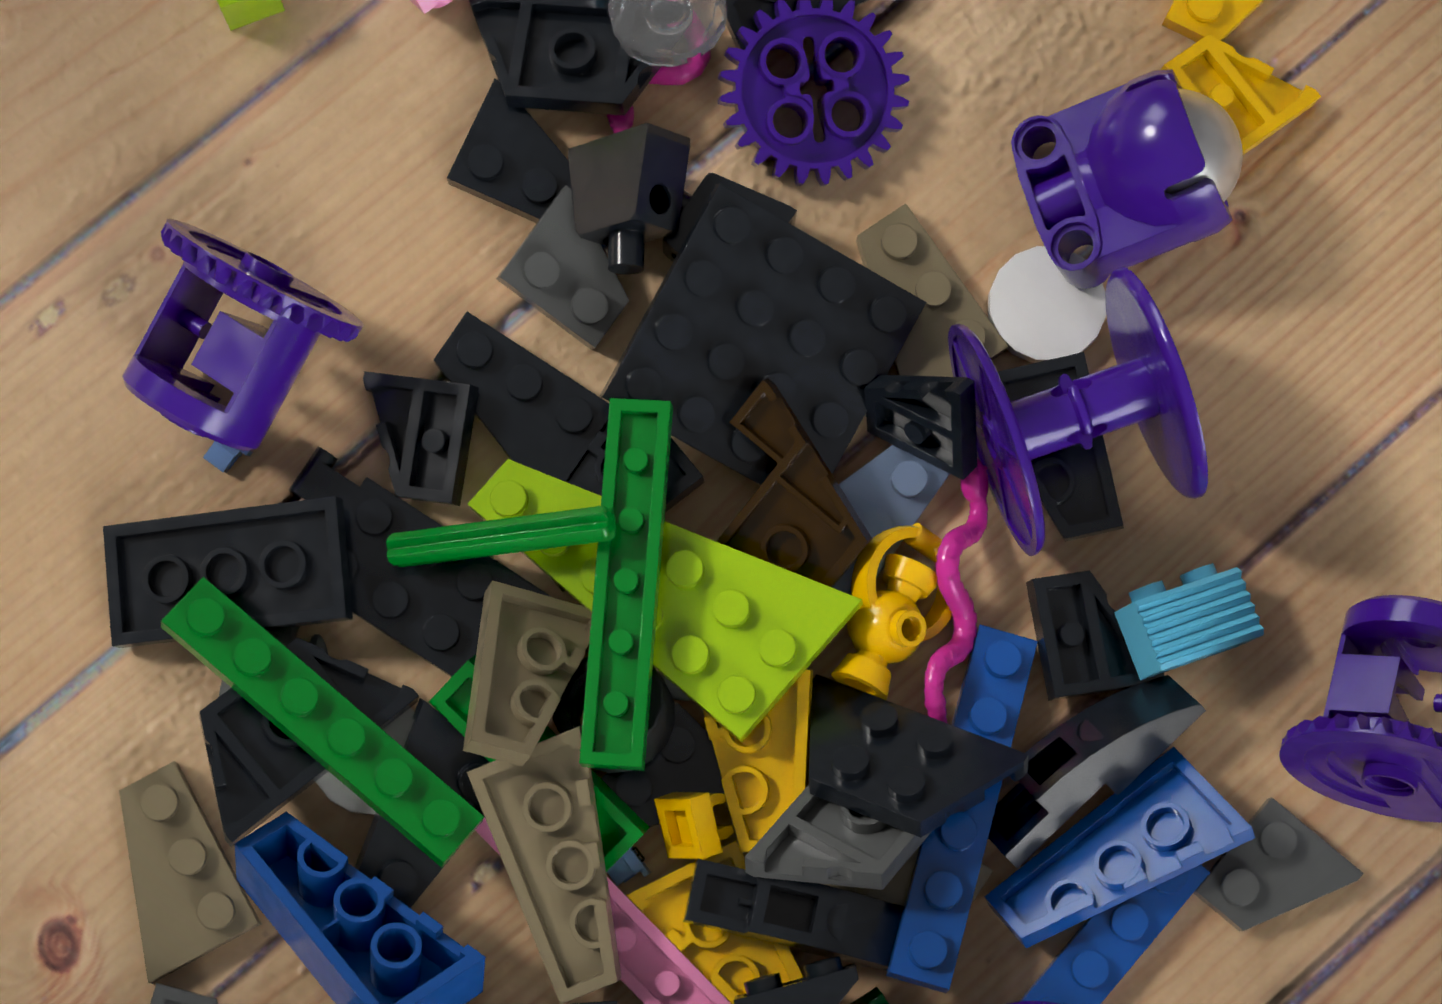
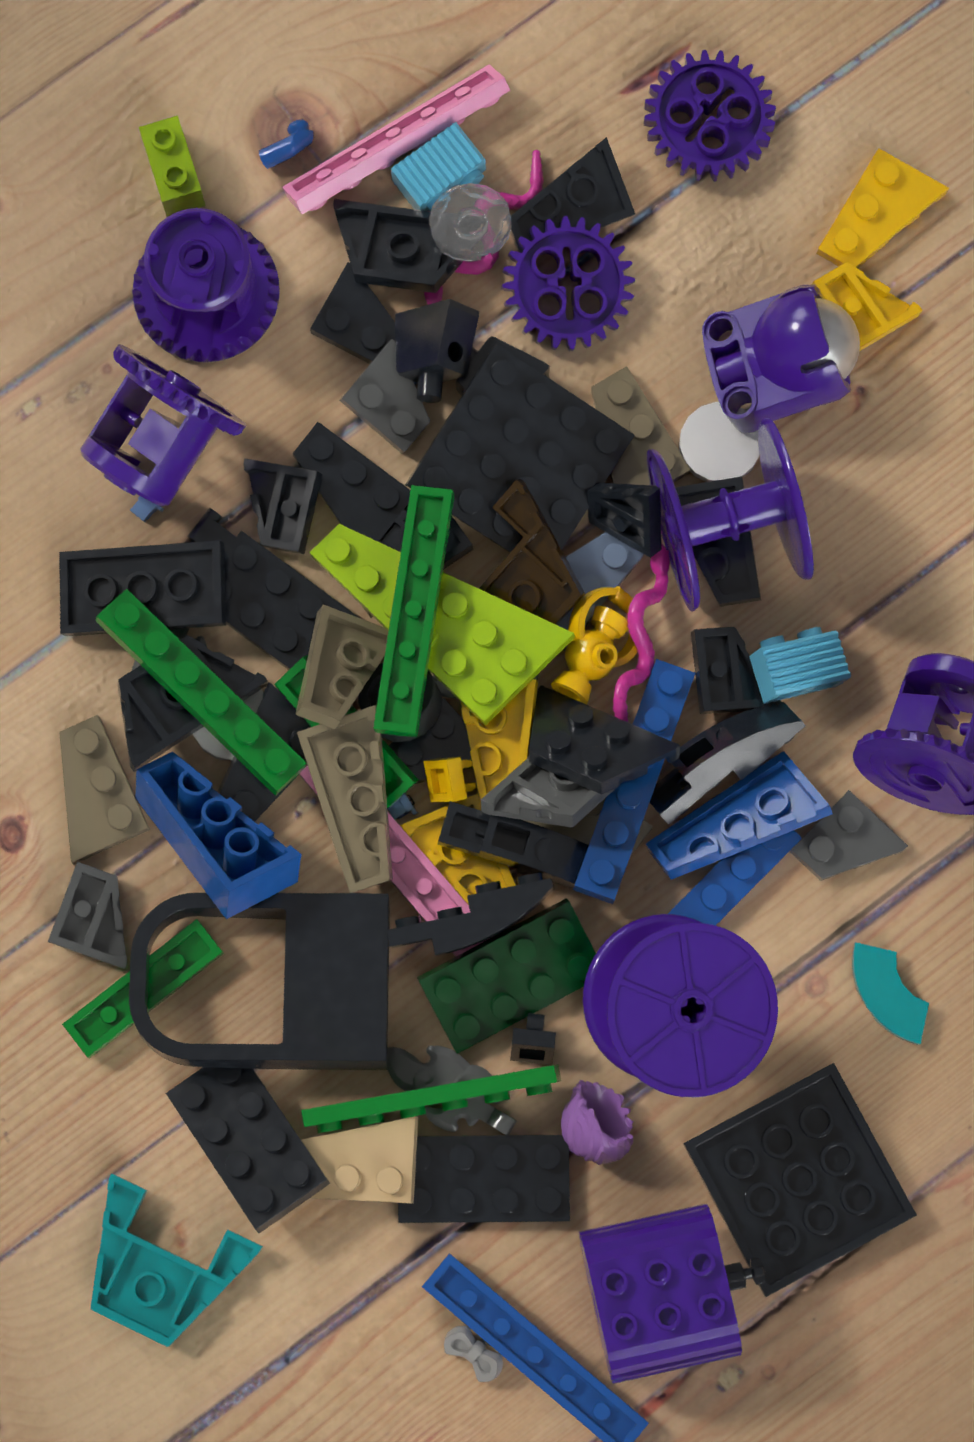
camera: 10 degrees right, 0 degrees up
(290, 126) = (204, 287): none -> dark purple piece
(502, 536) = (330, 574): green axle -> none

